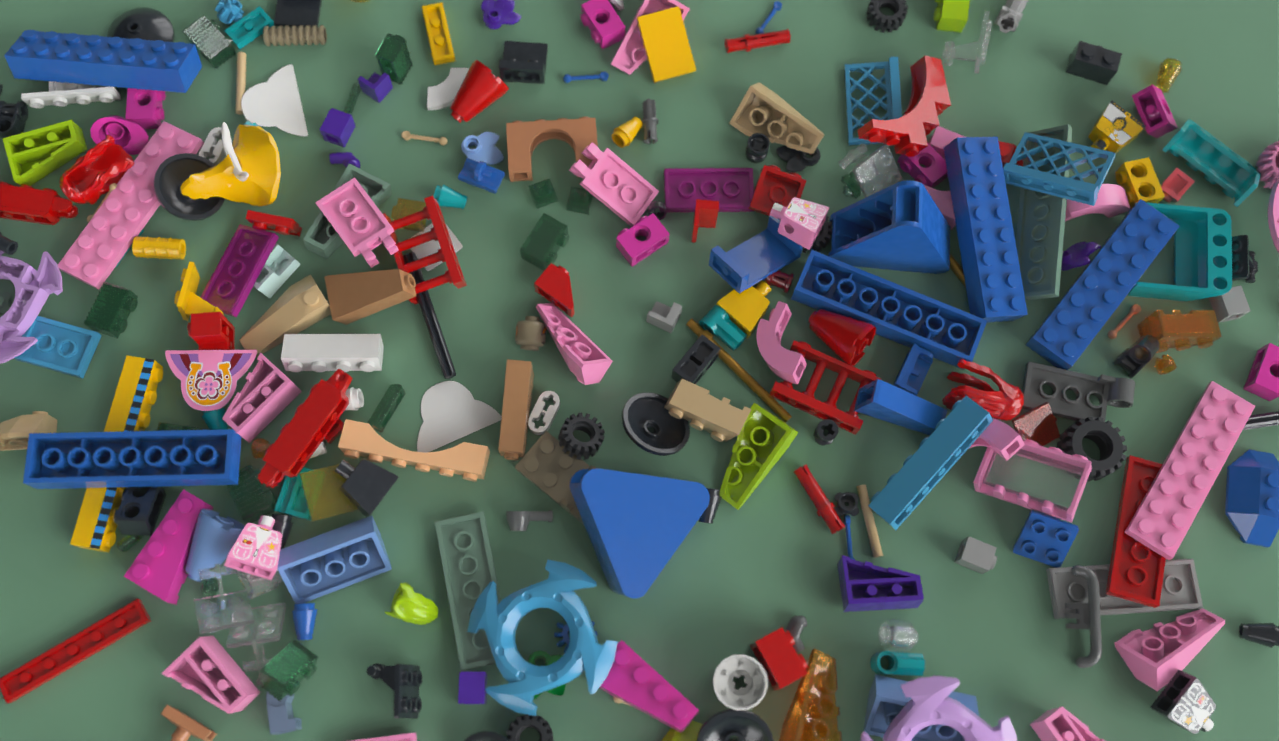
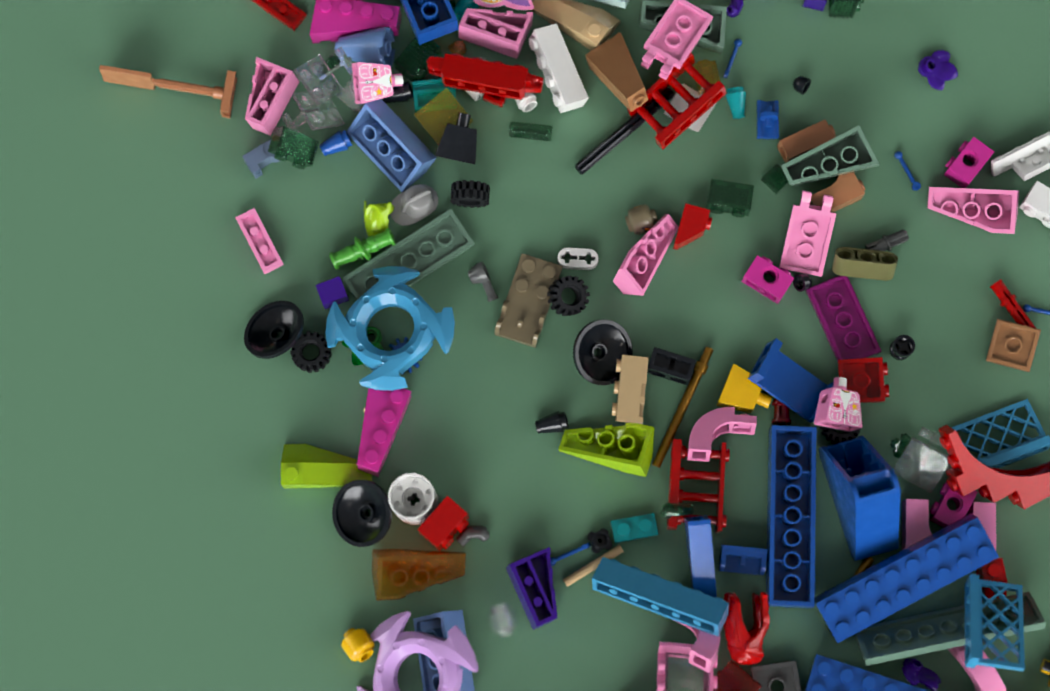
camera: 75 degrees right, 5 degrees up
(389, 175) = (737, 43): none -> blue hinge
(405, 683) = (312, 241): black plate -> none
(407, 136) = (781, 42): tan hinge -> none
(411, 560) = (414, 204): none -> light grey piece
(428, 494) = (470, 194): none -> black tyre
(437, 635) = (362, 248): none -> bright green piece
(438, 33) = (892, 26): yellow tile -> none
(444, 93) = (844, 61): white tile -> none
(451, 414) = (546, 185): white sticker -> none
(458, 133) = (801, 84): none -> black hinge
(464, 459) = (512, 210): light nougat arch -> none
(476, 92) = (845, 82): red cone -> none
(485, 148) = (795, 114): light blue plate -> none
(516, 409) = (570, 233): medium nougat slope -> none
(523, 62) = (896, 110): black bracket -> none
(552, 120) = (833, 158): none -> sand green wedge
(579, 200) = (782, 212): clear green tile -> none
(625, 133) = (867, 227): yellow cone -> none
(635, 522) = (511, 365): blue brick -> none
(663, 147) = (864, 263): none -> olive beam
(664, 316) = (705, 325): light grey panel -> none
(666, 44) = (969, 227): yellow tile -> none
(704, 216) = (811, 320): red panel -> none
(720, 325) = (716, 376): teal piece -> none
(769, 114) = (938, 346): tan wedge -> none
(792, 54) = (1013, 345): none -> medium nougat tile
(796, 159) = (913, 385): black plate -> none
(819, 499) = (594, 515): red pin -> none
(833, 430) = (661, 497): black bush -> none
(842, 334) = (750, 485): red cone -> none
(844, 465) = (634, 528): none -> teal plate
(847, 413) = (674, 509): none -> clear green arm
(899, 663) = (480, 630): teal piece -> none
(976, 555) = (597, 666): light grey brick -> none

